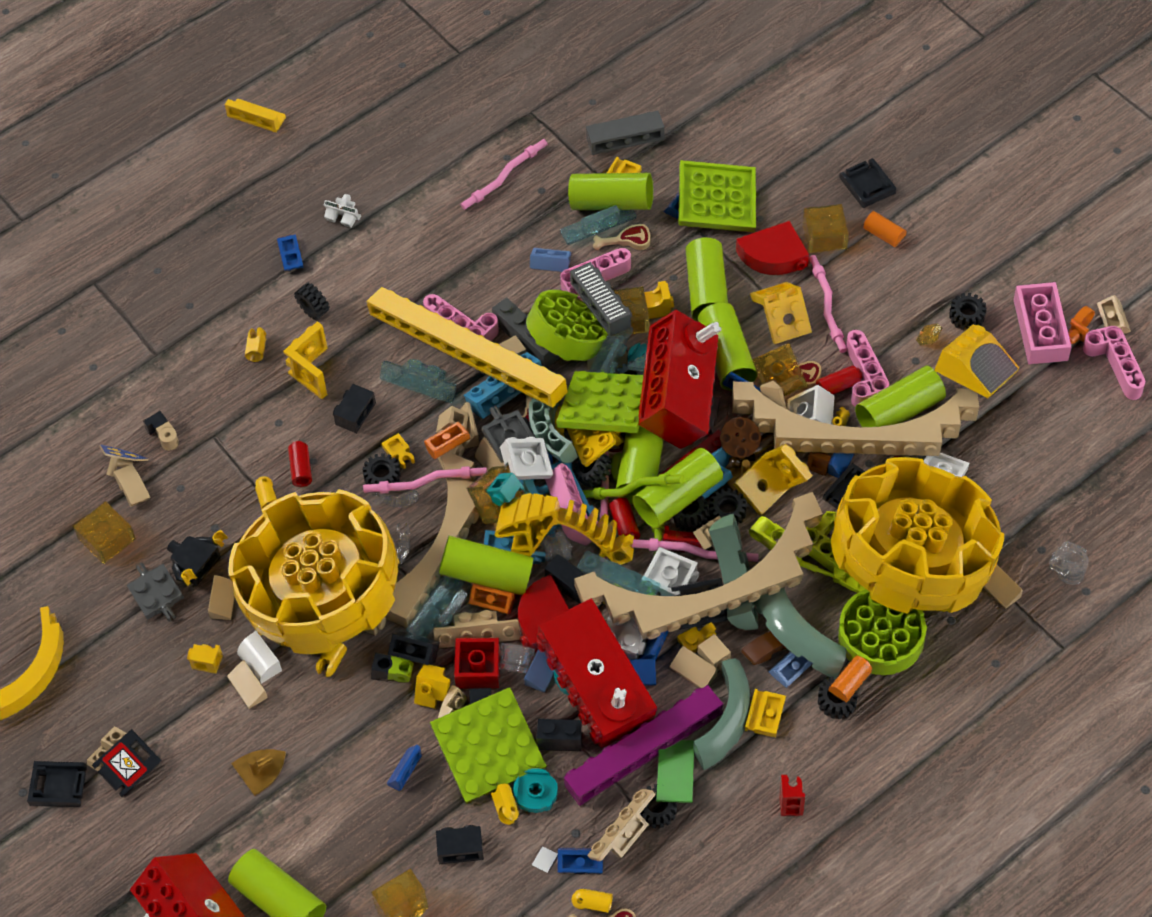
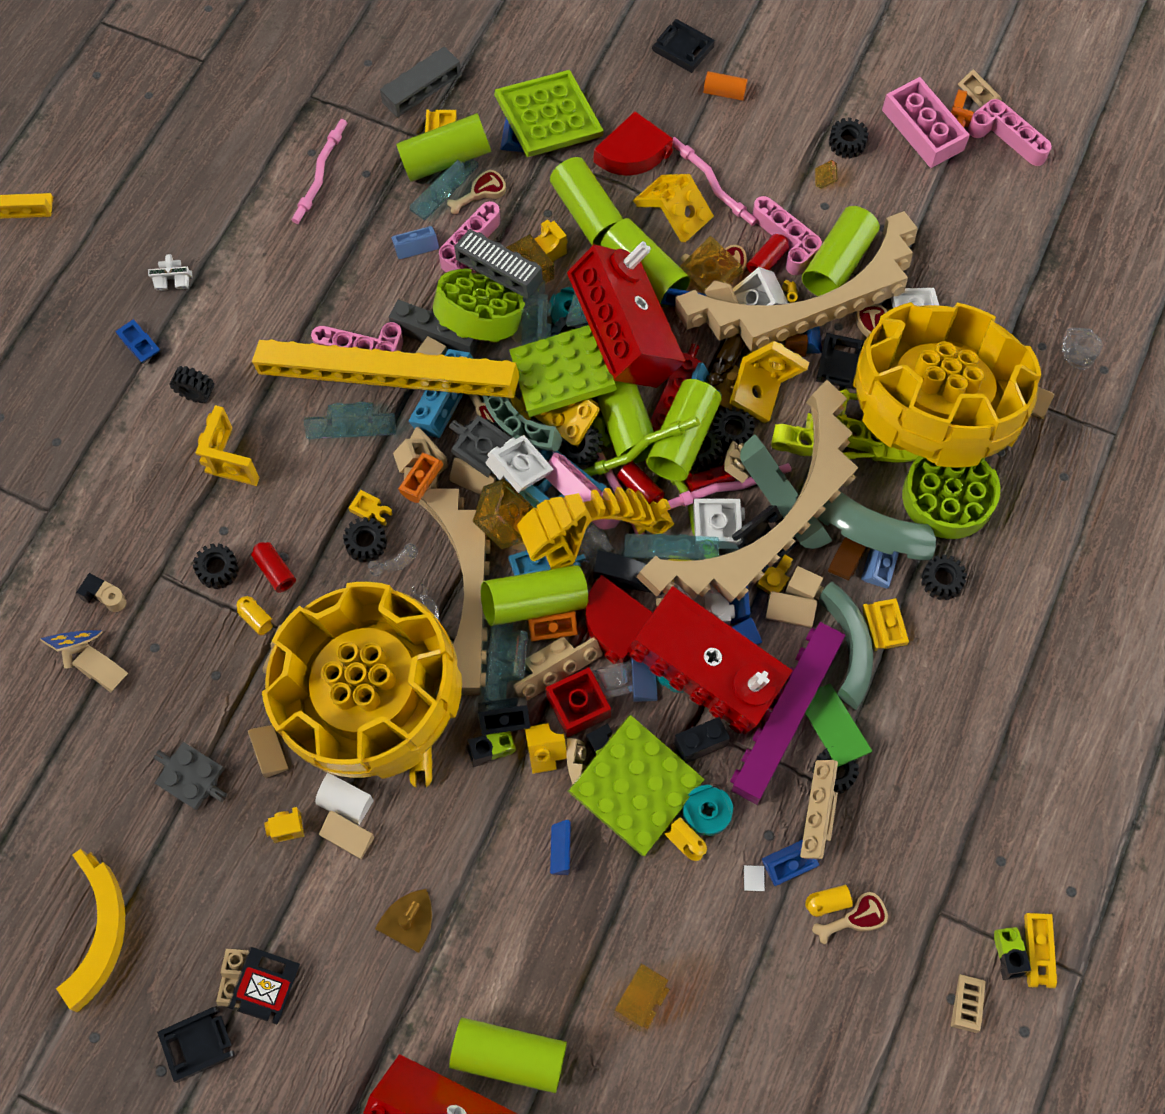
camera: 30 degrees left, 10 degrees up
(104, 532) = (98, 735): clear yellow brick -> none
(195, 557) = (214, 719): black torso -> none
(255, 345) = (154, 458): yellow piece -> none
(257, 436) = (209, 555): none -> black tyre
(354, 408) = (298, 482): black brick -> none
(384, 486) = (458, 504): bright pink bar -> none
(459, 844) = (664, 905): black brick -> none
(504, 488) = (514, 505): teal brick -> none
(733, 445) = (708, 361): reddish brown plate -> none
(791, 798) = (962, 704): red hinge -> none
(825, 228) = (671, 105): clear yellow brick -> none
(851, 678) = (951, 553): orange brick -> none
(977, 361) = (892, 184): yellow slope -> none

